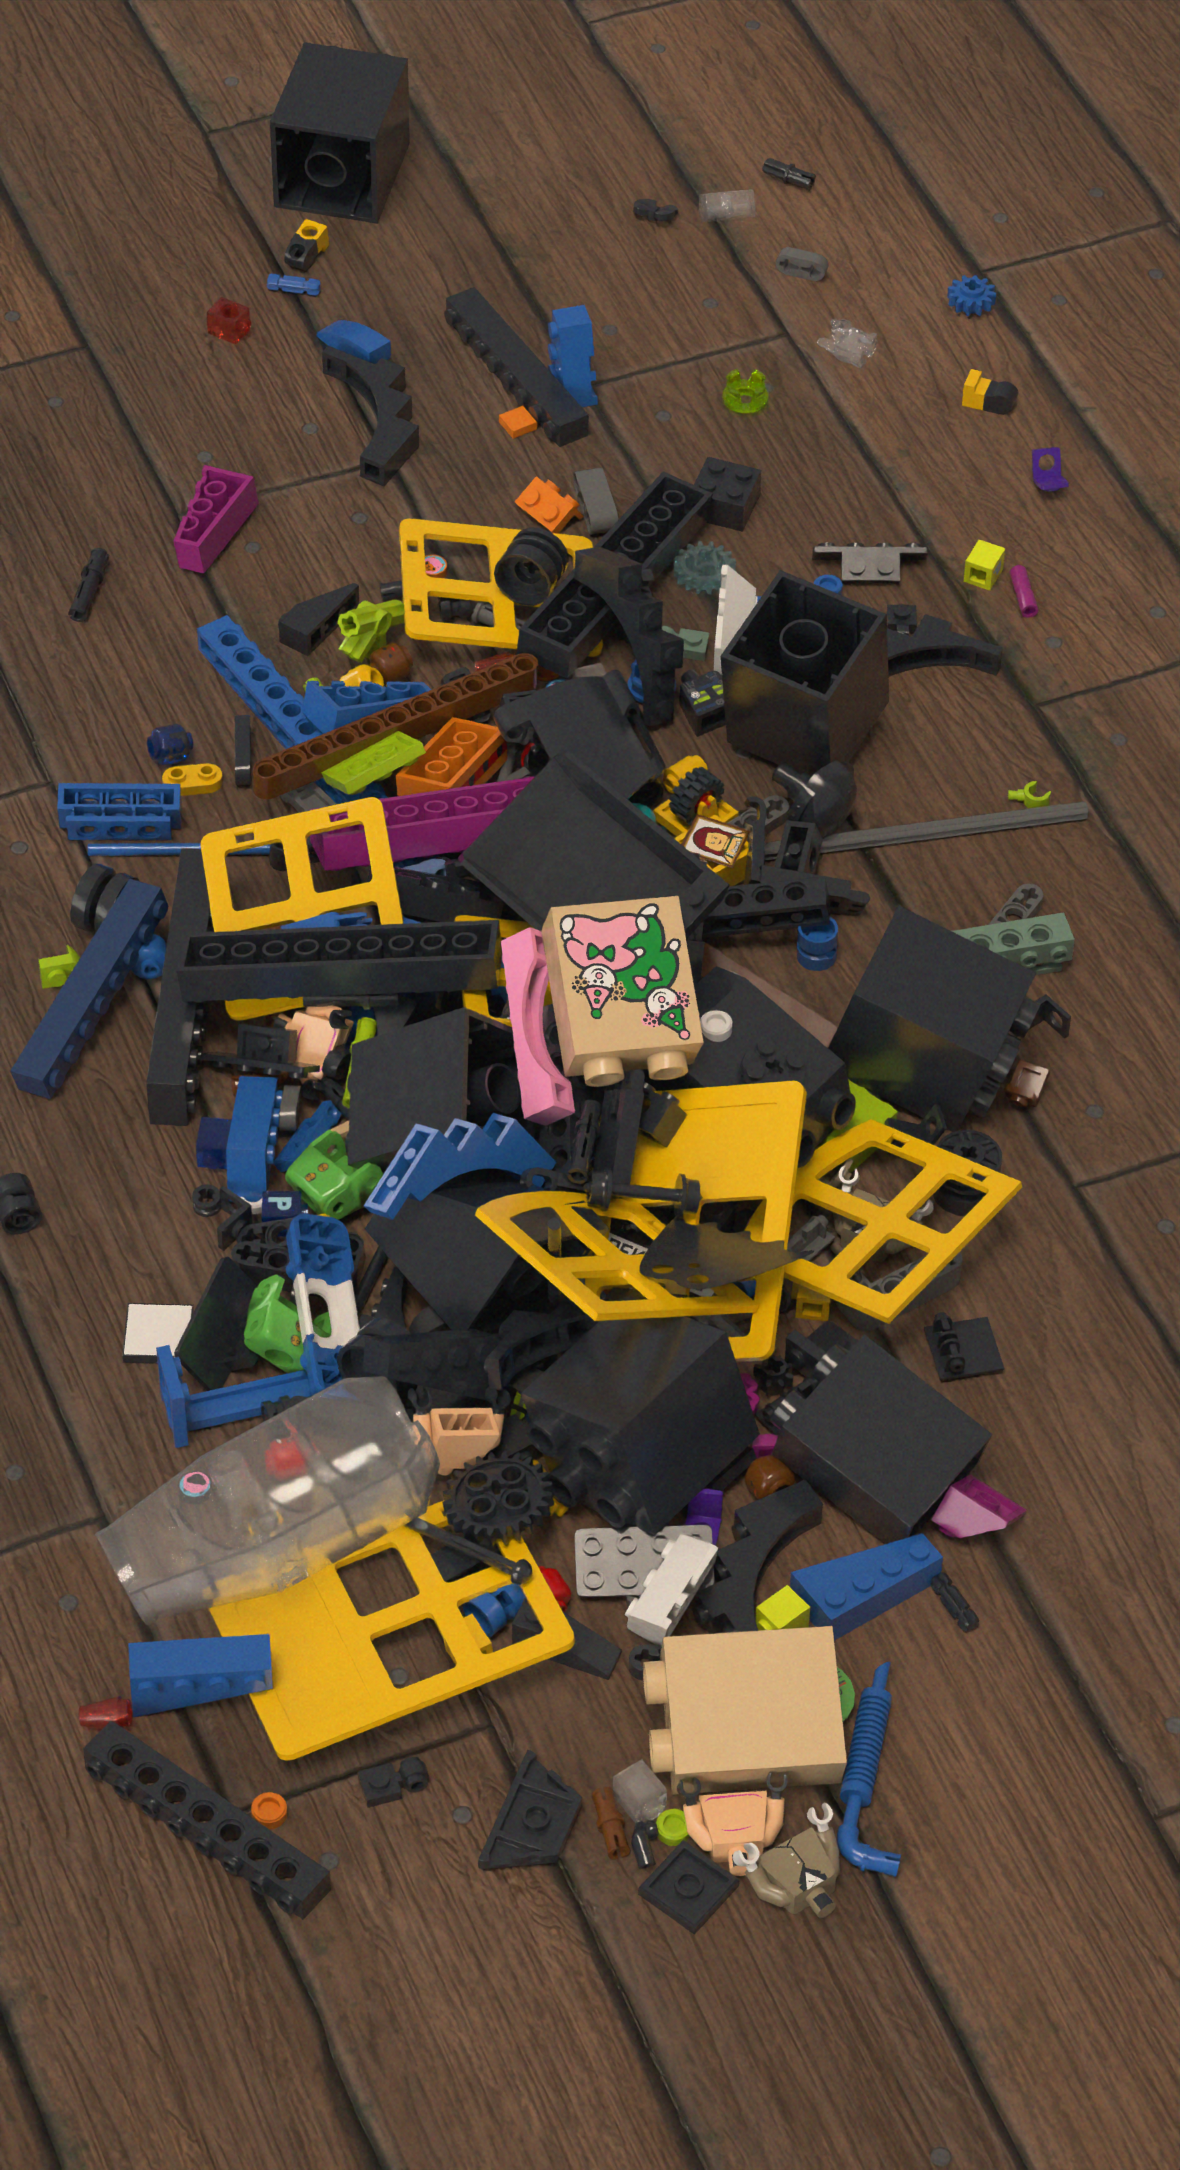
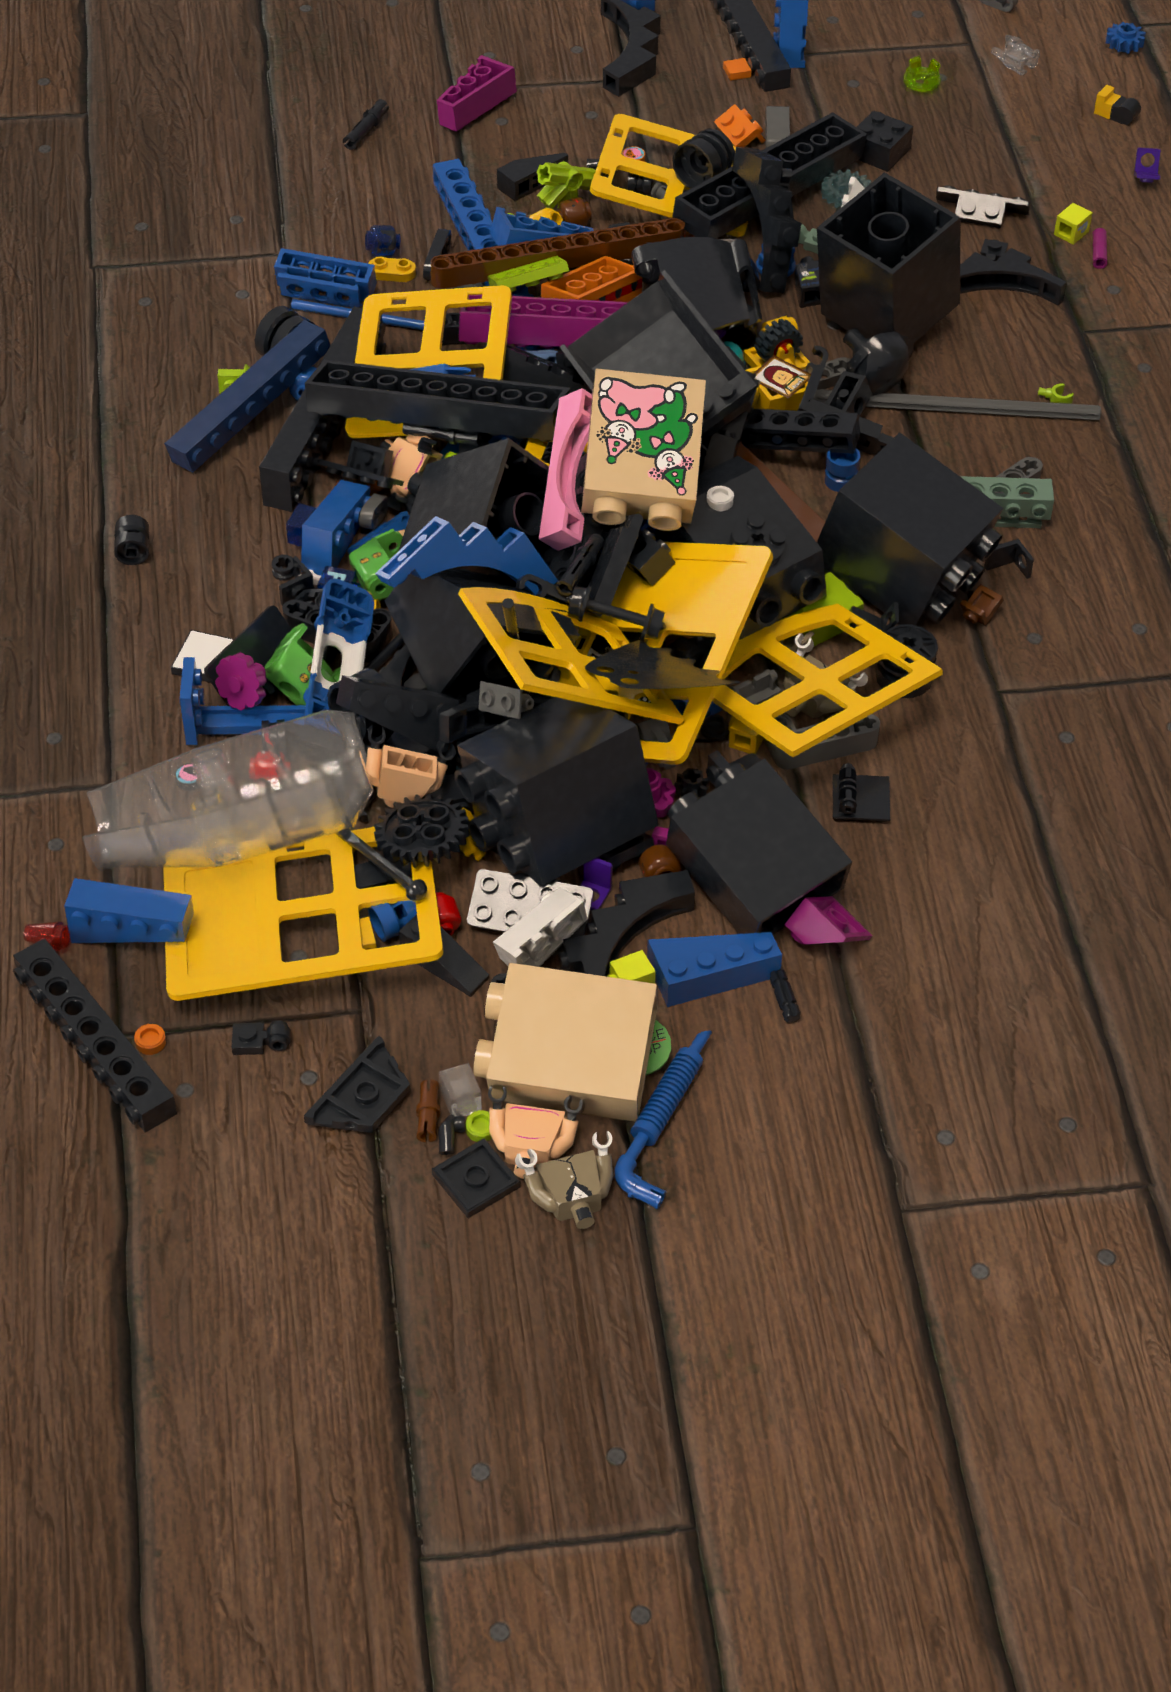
camera: 15 degrees right, 0 degrees up
(223, 1360) = (241, 681): none -> magenta plant
(554, 1328) = (503, 700): none -> dark grey hinge

